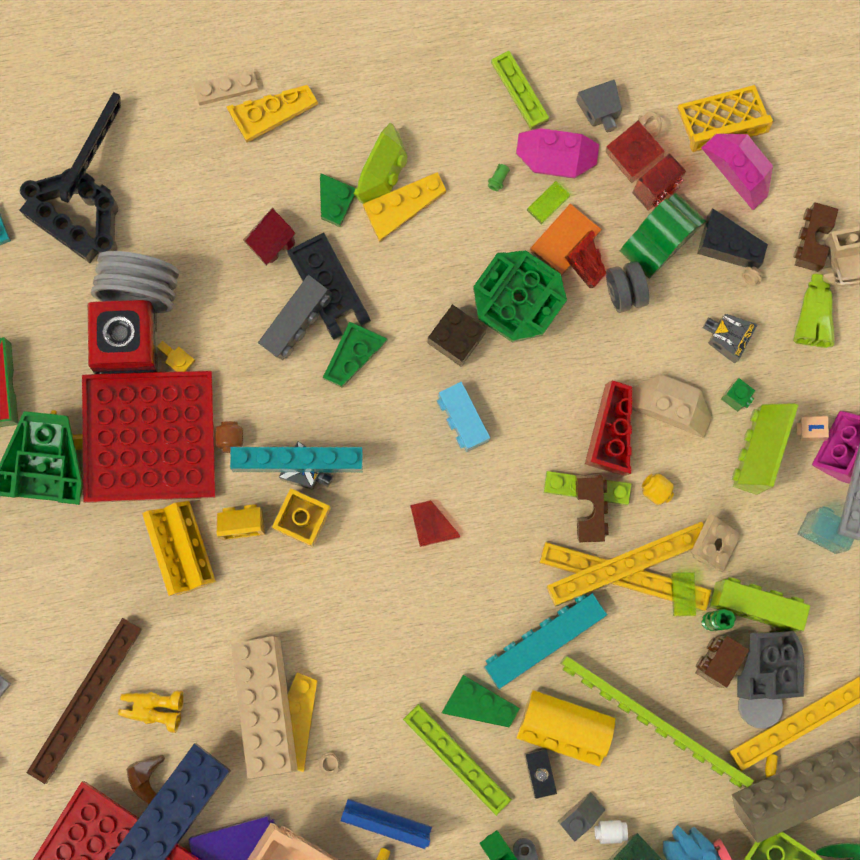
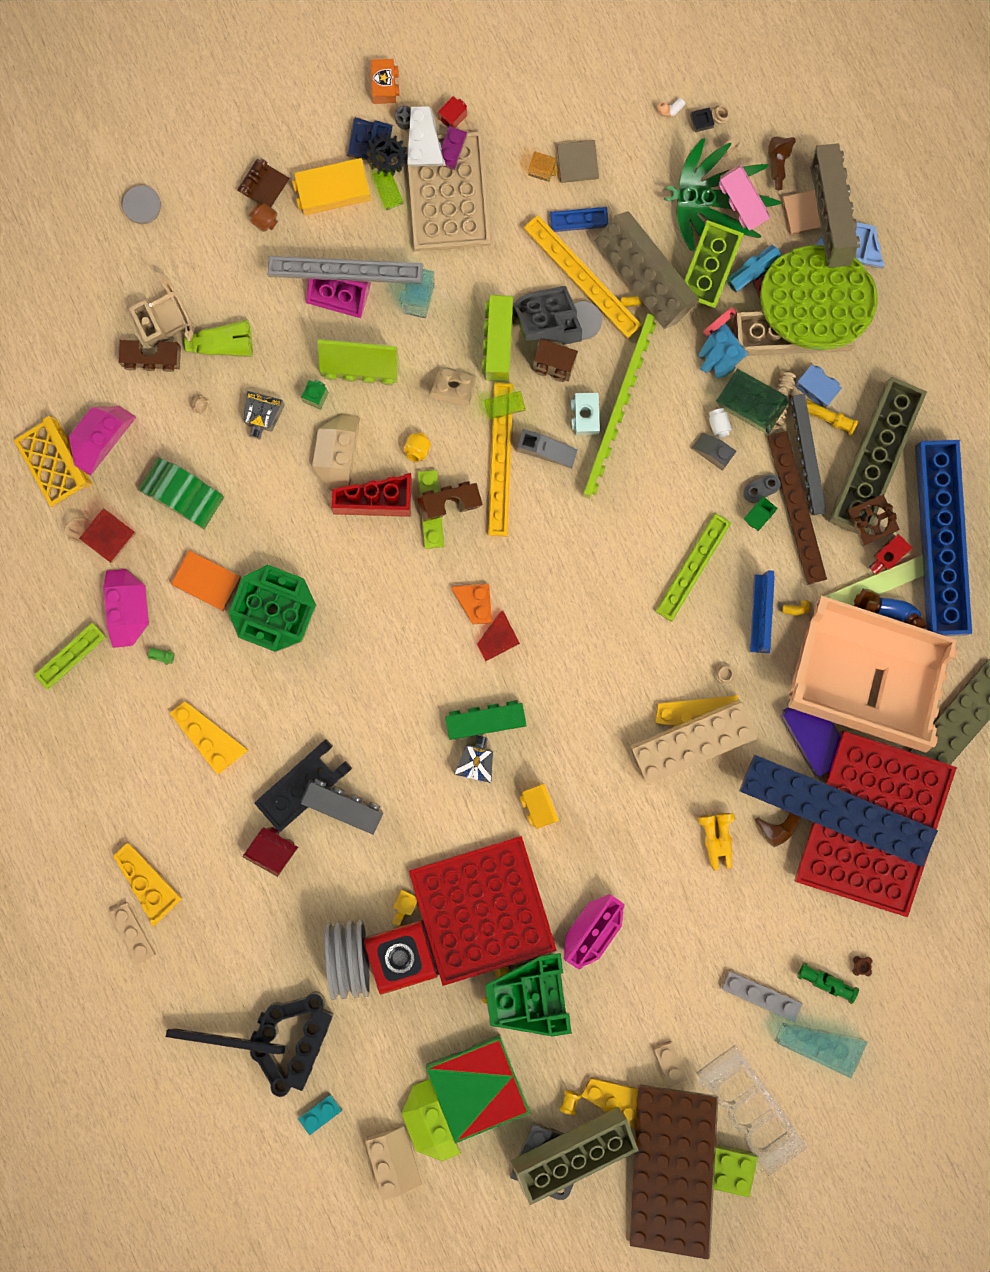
camera: 100 degrees left, 5 degrees up
(84, 701) = (726, 900): reddish brown plate -> none
(92, 546) = (593, 931): none -> dark pink wedge
(179, 548) = (575, 854): yellow brick -> none
(229, 435) = (465, 837): dark orange head -> none
(297, 459) = (472, 769): teal brick -> none
(301, 517) = (521, 753): yellow brick -> none
(335, 199) = (218, 801): green wing -> none
(346, 500) = (485, 721): none -> green brick
(352, 353) = (360, 747): green wing -> none
(382, 166) = (178, 763): lime wedge -> none
(456, 335) = (321, 657): dark brown brick -> none
(463, 417) = (395, 633): medium azure brick -> none
(475, 510) = (475, 602): none -> orange wing
(479, 704) = (642, 563): green wing -> none
(540, 773) = (687, 493): black piece -> none
(545, 640) = (574, 515): teal brick -> none
(548, 202) = (173, 604): clear neon green tile -> none
(566, 728) = (644, 479): yellow brick -> none
(587, 260) = (222, 556): clear red wing -> none
(601, 104) = (68, 576): dark grey torso -> none
(624, 565) = (492, 460): yellow plate -> none
(625, 628) = (546, 448): none -> slope
(627, 287) = (240, 513): dark grey wheel -> none
(641, 684) = (587, 402): none -> light aqua brick
(659, 182) = (129, 503): clear red brick -> none
(718, 620) = (521, 370): green piece -> none
(730, 242) = (174, 430): black wedge -> none
(813, 428) = (329, 323): light nougat brick -> none

